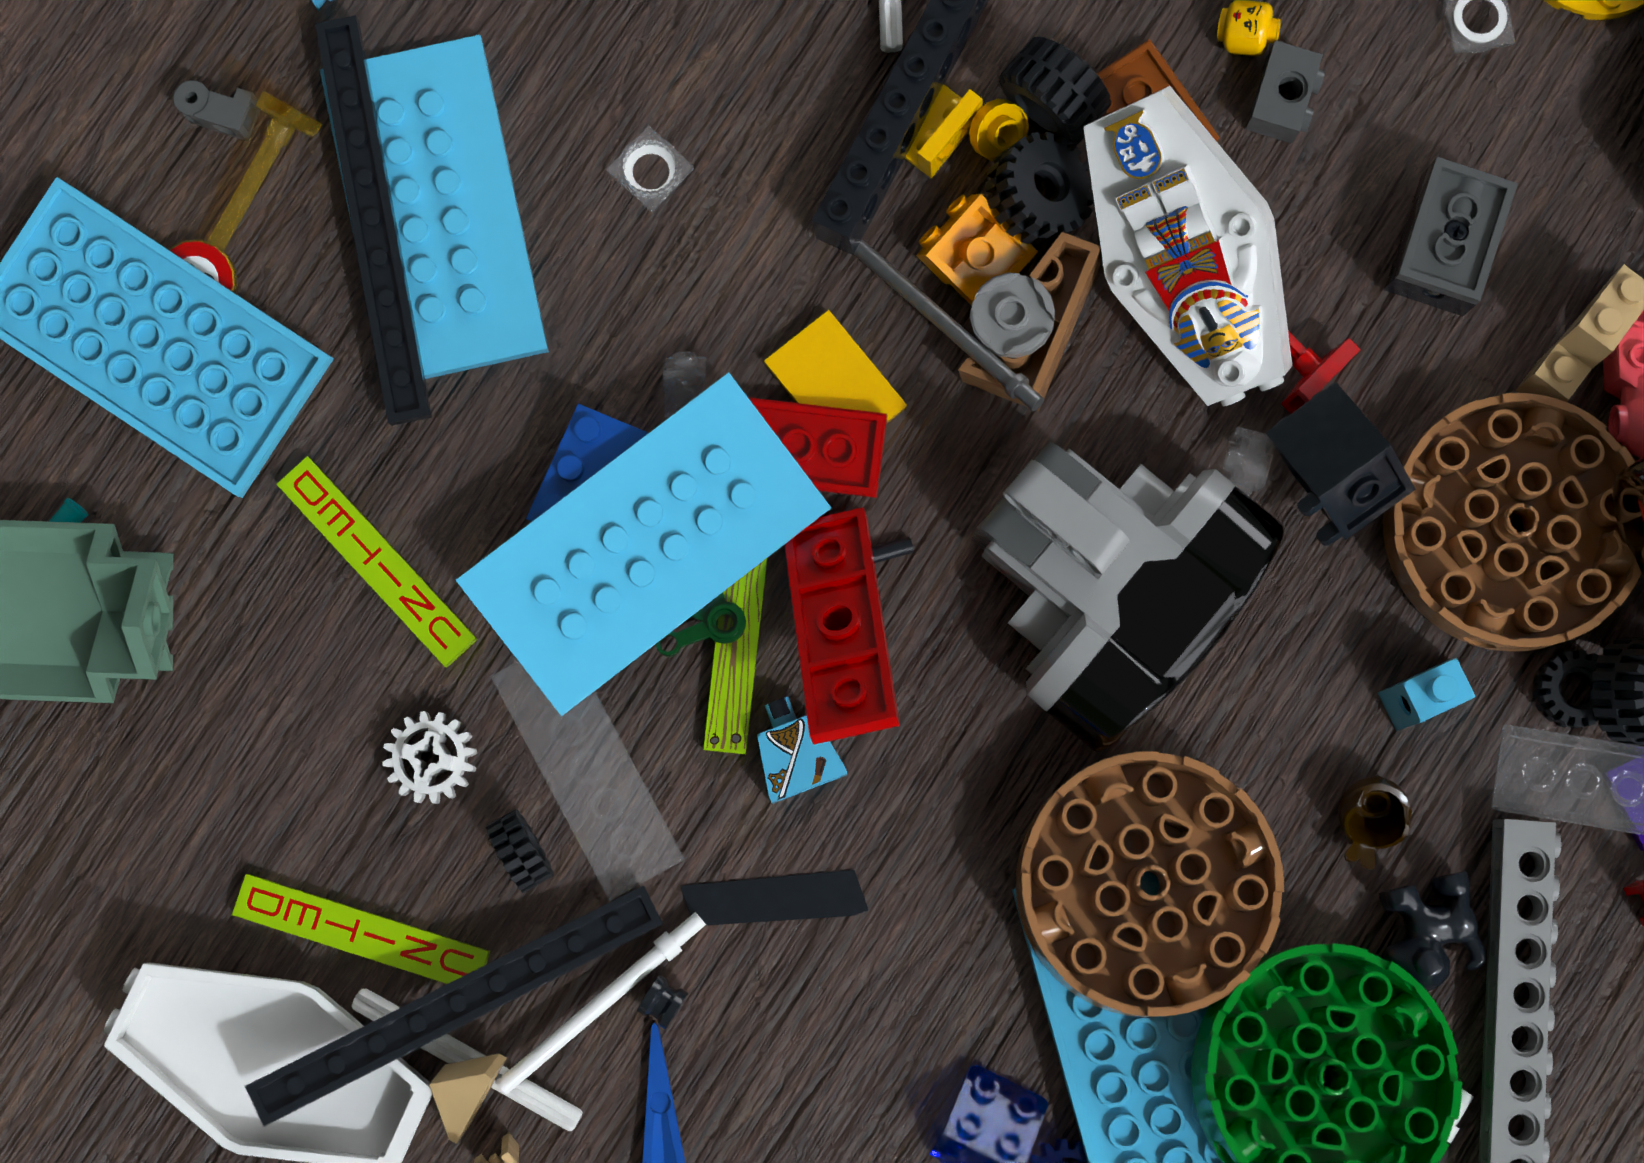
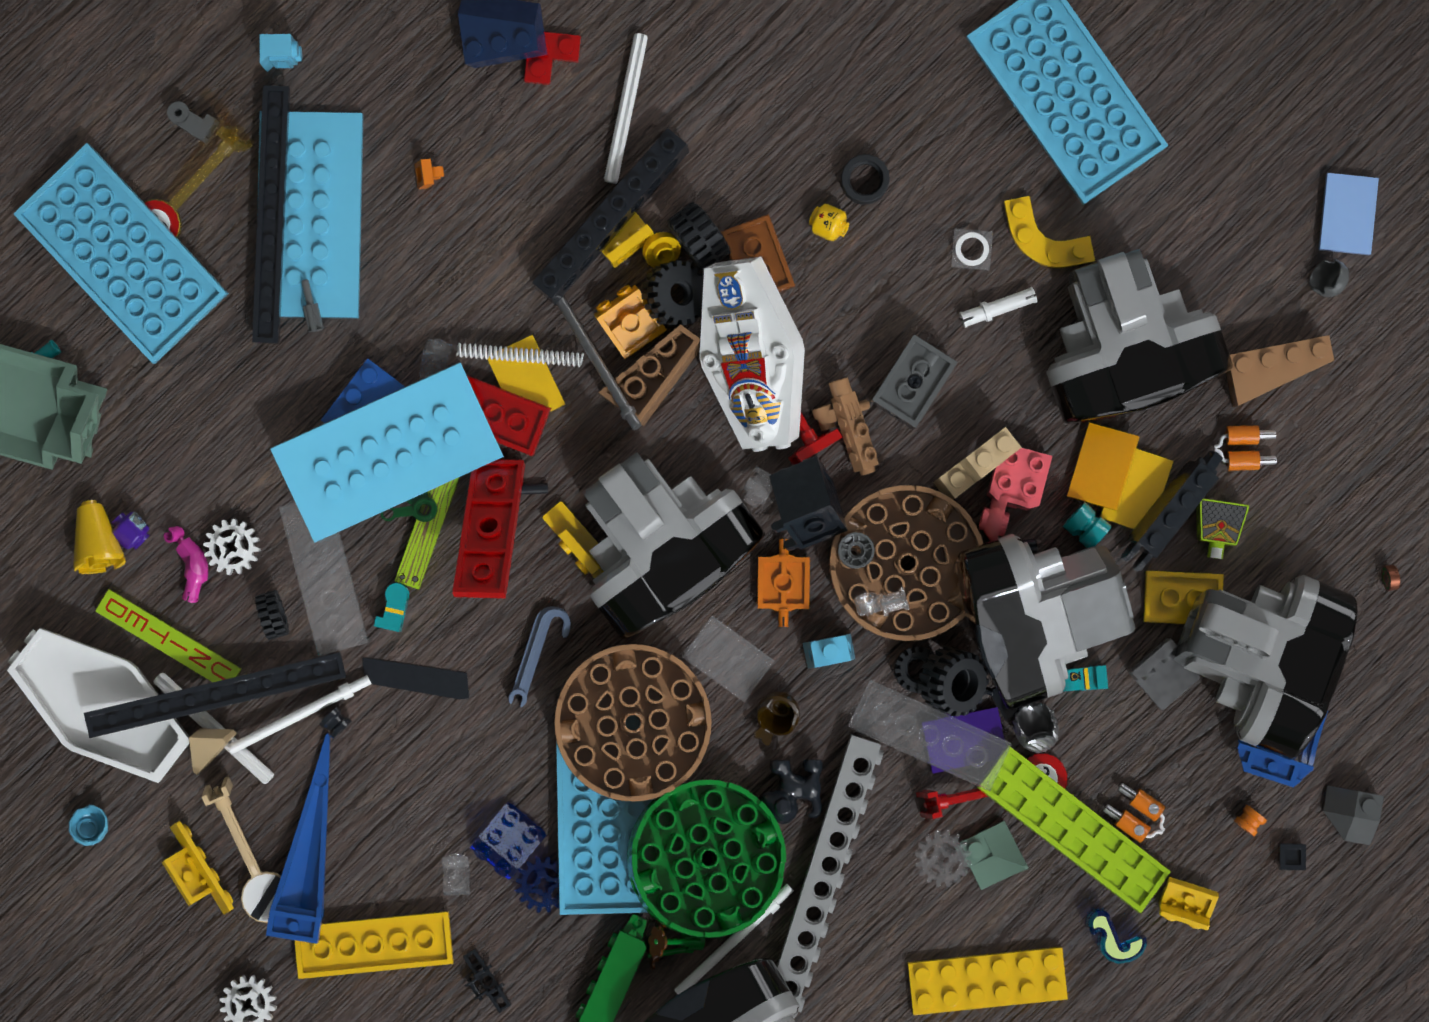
camera: 10 degrees right, 5 degrees up
(207, 801) = (94, 540): none -> yellow cone
(259, 770) = (130, 530): none -> dark purple head
(376, 795) = (195, 562): none -> dark pink arm
(377, 562) = (226, 421): lime tile -> none
(470, 352) = (311, 310): none -> dark grey axle
(603, 102) = (427, 174): none -> orange tile
(650, 143) = (430, 216): clear piece -> none
(716, 793) = (396, 606): none -> teal leg
(790, 757) = (440, 598): medium azure torso -> none
(815, 345) = (546, 358): none -> white piece
(953, 808) = (534, 649): none -> sand blue piece
(976, 614) = (573, 538): none -> yellow bracket
(1012, 315) = (637, 368): light grey tile -> none
(1268, 745) = (728, 658): none -> clear tile
(1290, 68) = (842, 252): dark grey brick -> none
(1325, 603) = (783, 583): none -> orange plate
(1368, 326) = (851, 422): none -> medium nougat piece
(1450, 505) = (865, 545): none -> dark grey wheel
(1509, 591) = (874, 603): none -> clear connector
(1529, 105) = (997, 307): none -> white pin

